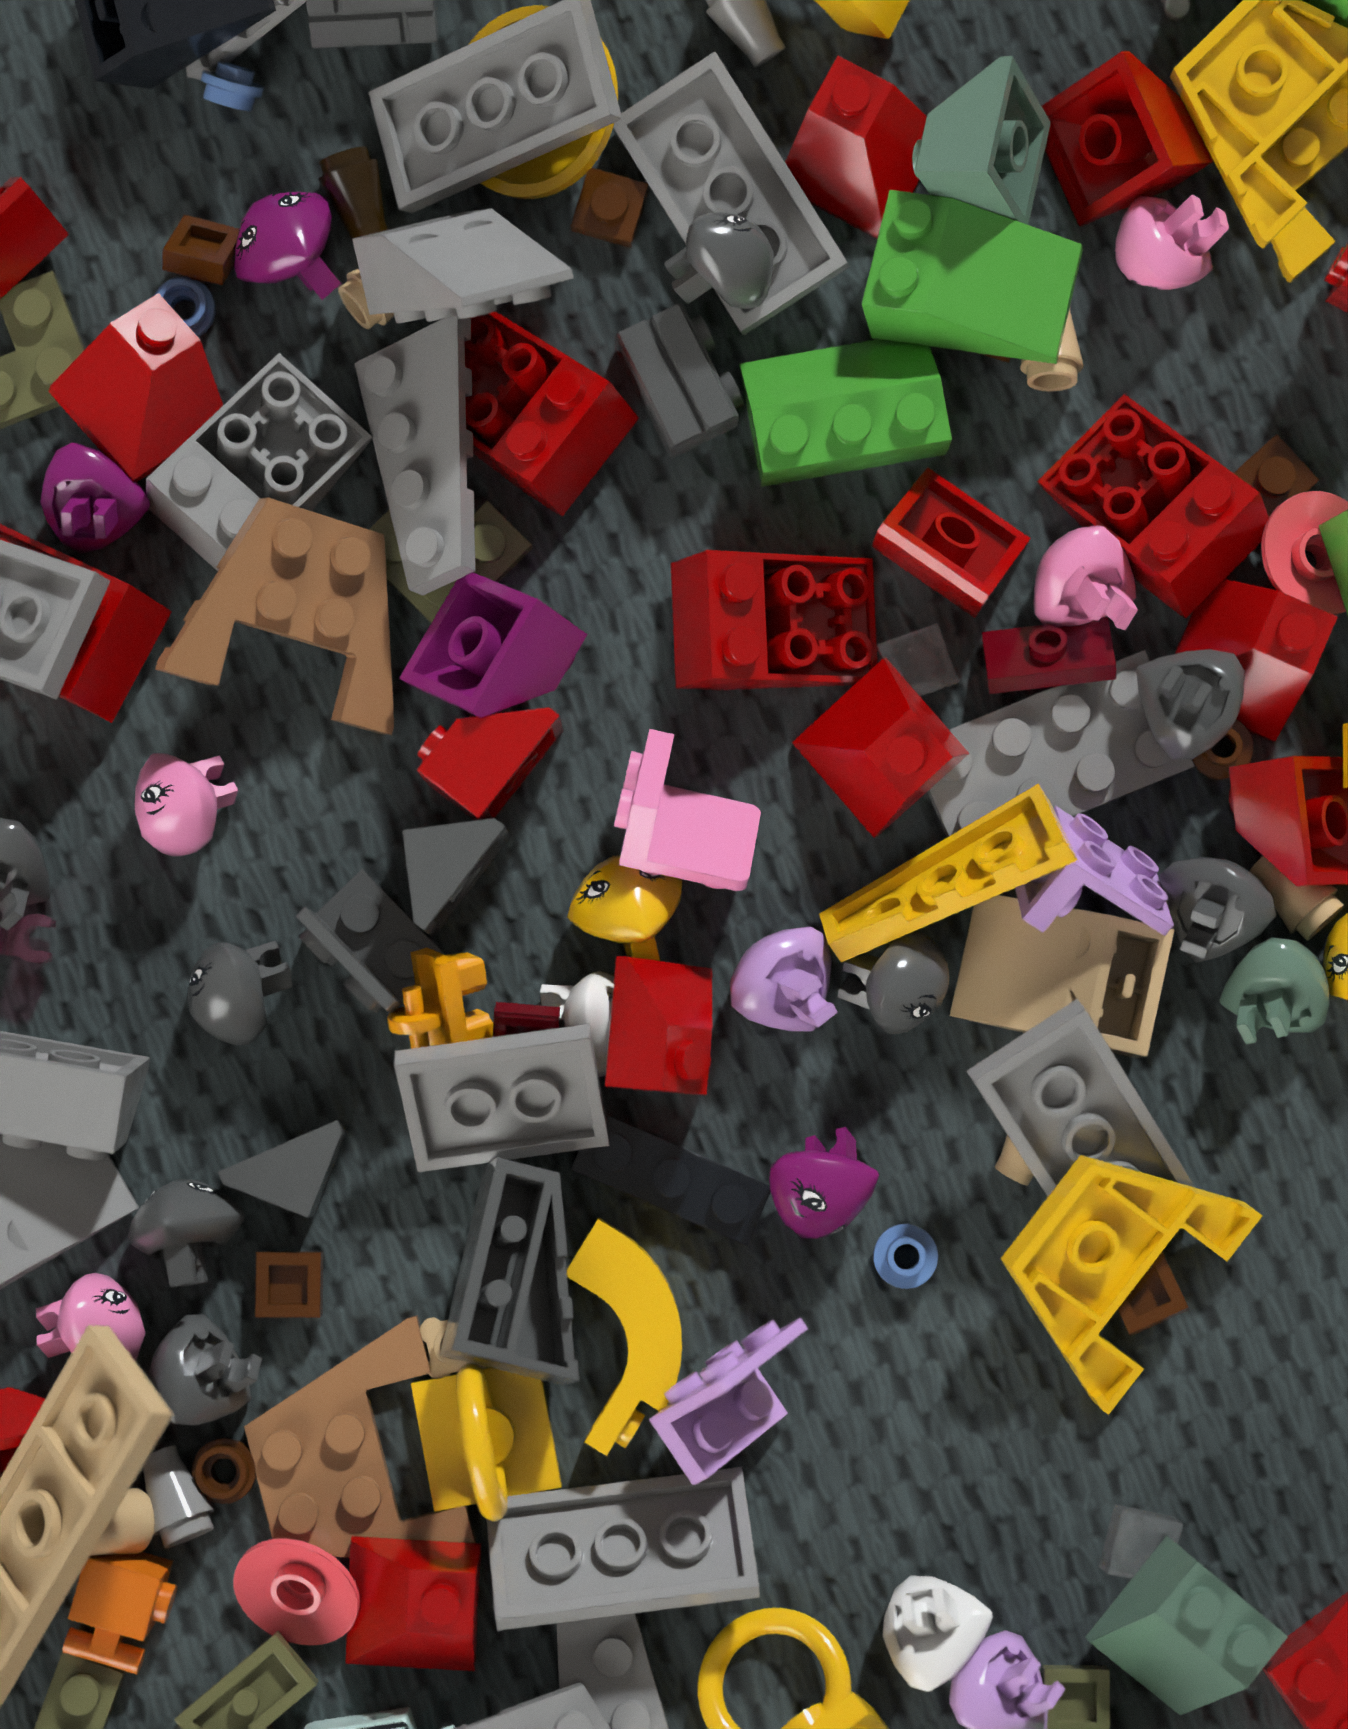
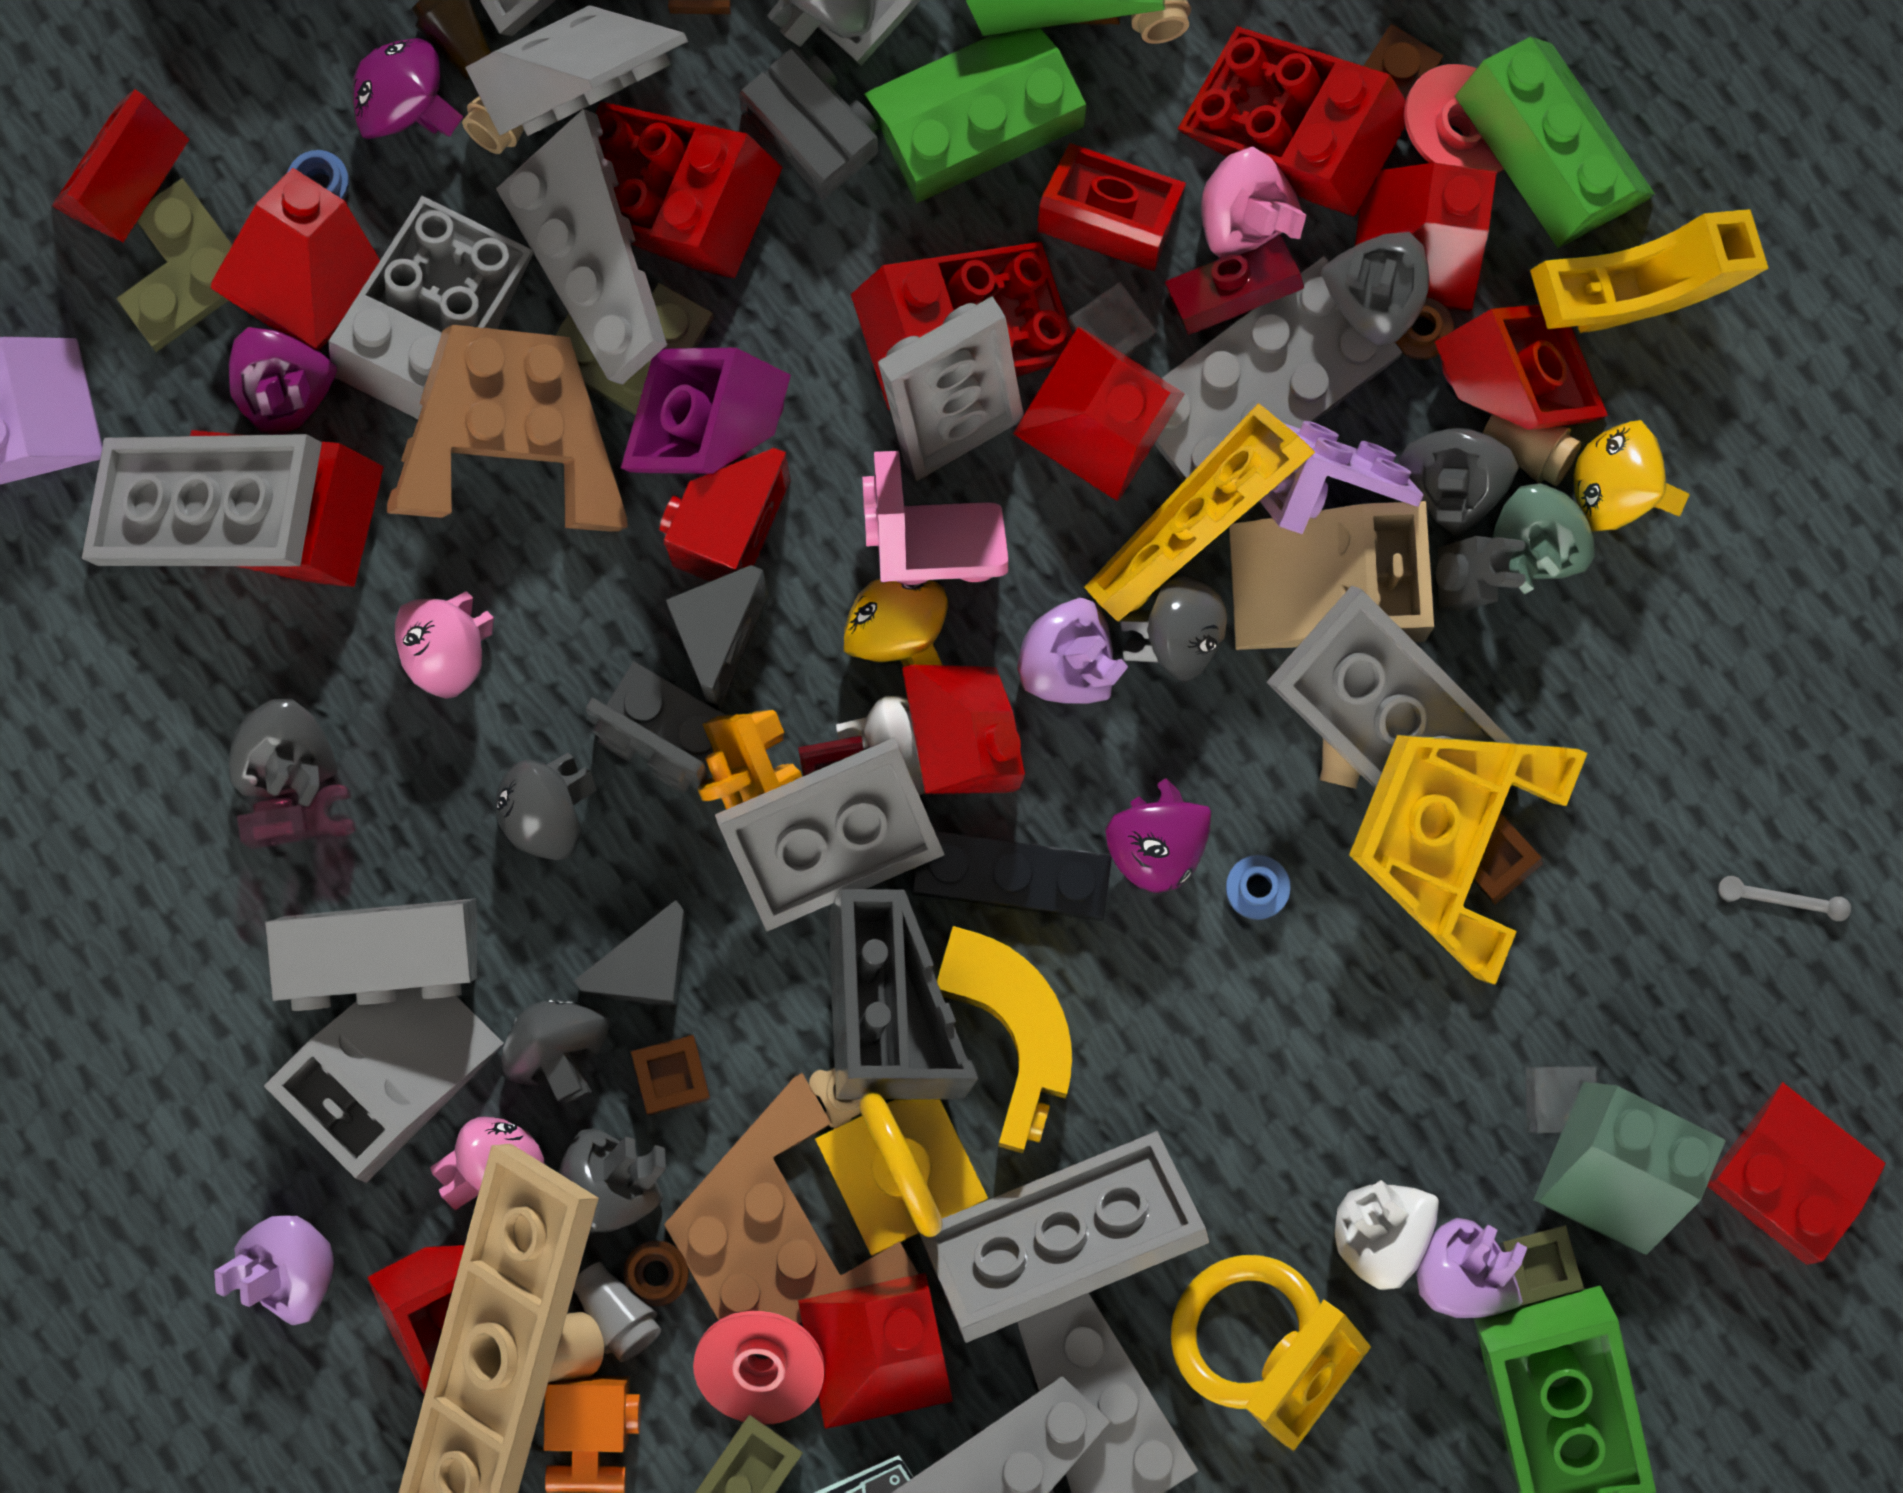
camera: 15 degrees left, 5 degrees down
(201, 250) = (321, 121): reddish brown plate -> none
(728, 1407) = (1127, 1072): lavender bracket -> none
(739, 693) = (952, 387): none -> light grey plate
(1204, 1006) = (1473, 570): none -> dark grey plate

